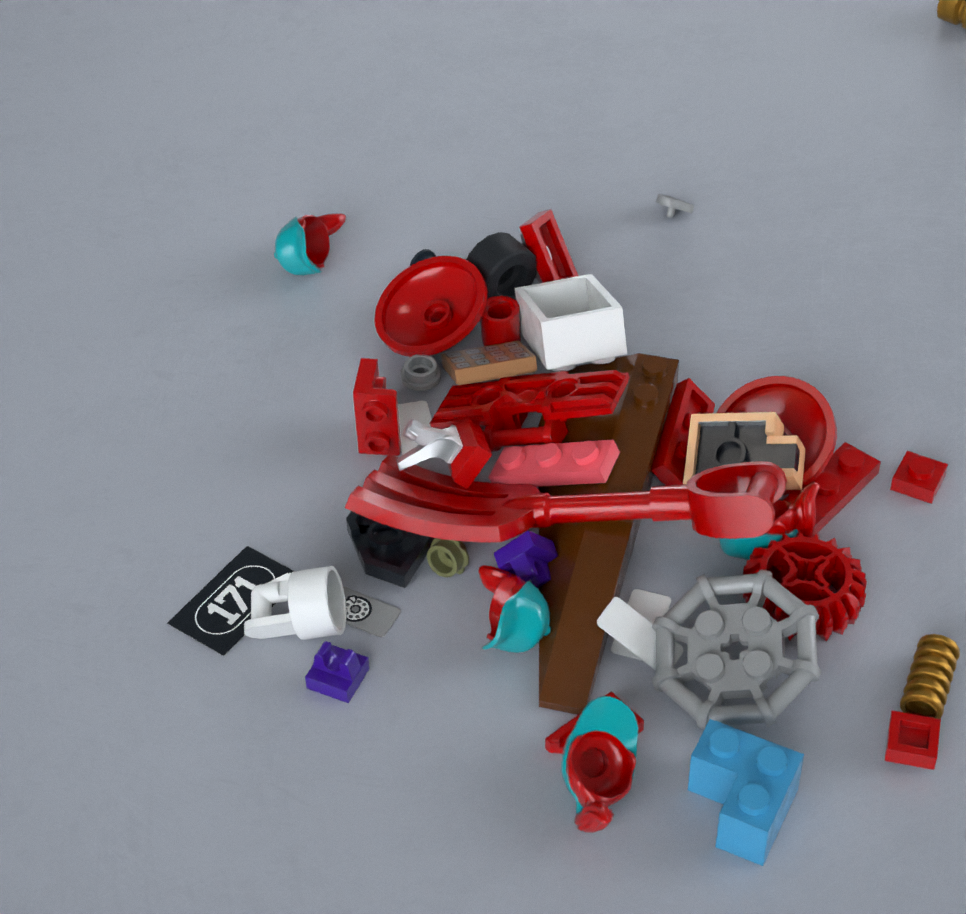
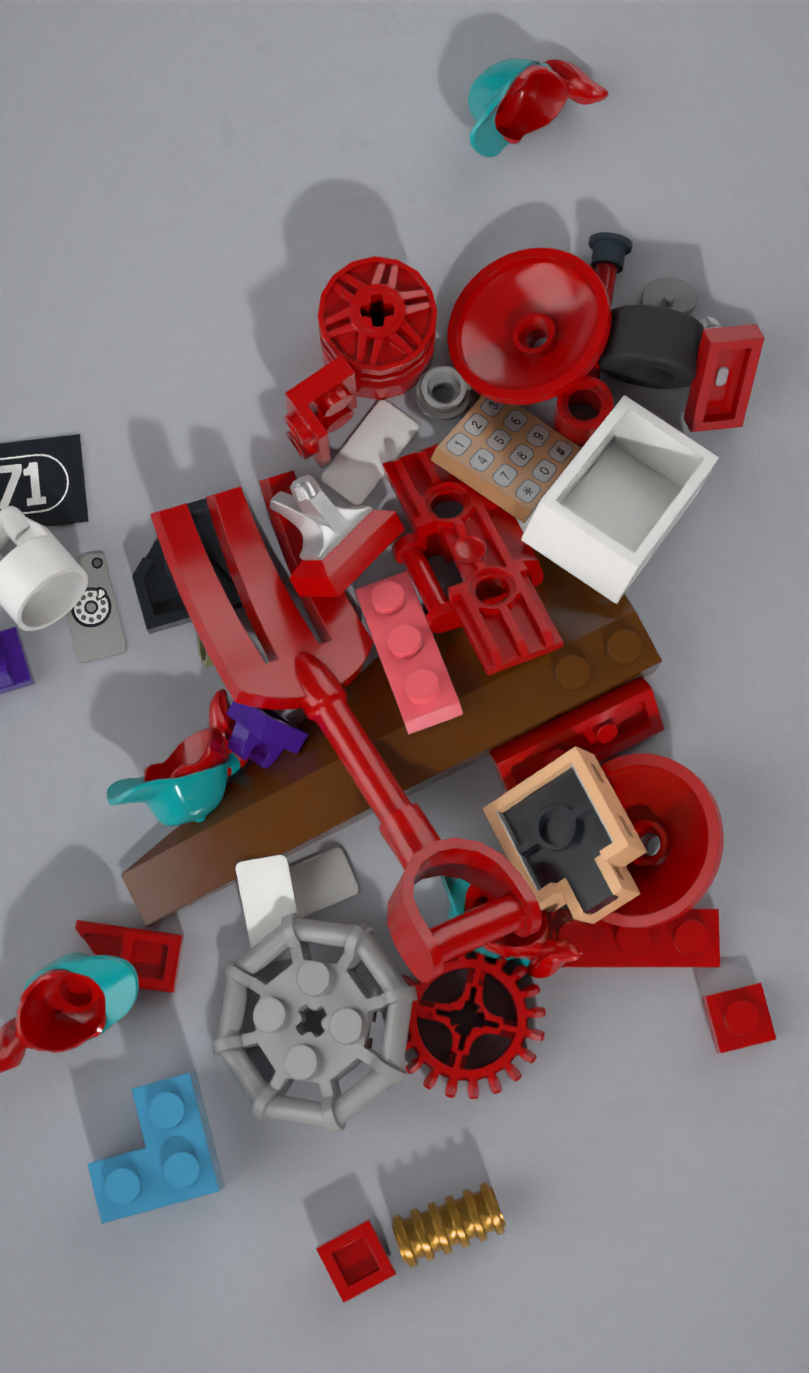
camera: 45 degrees right, 35 degrees up
(337, 352) = (385, 357): none -> red wheel

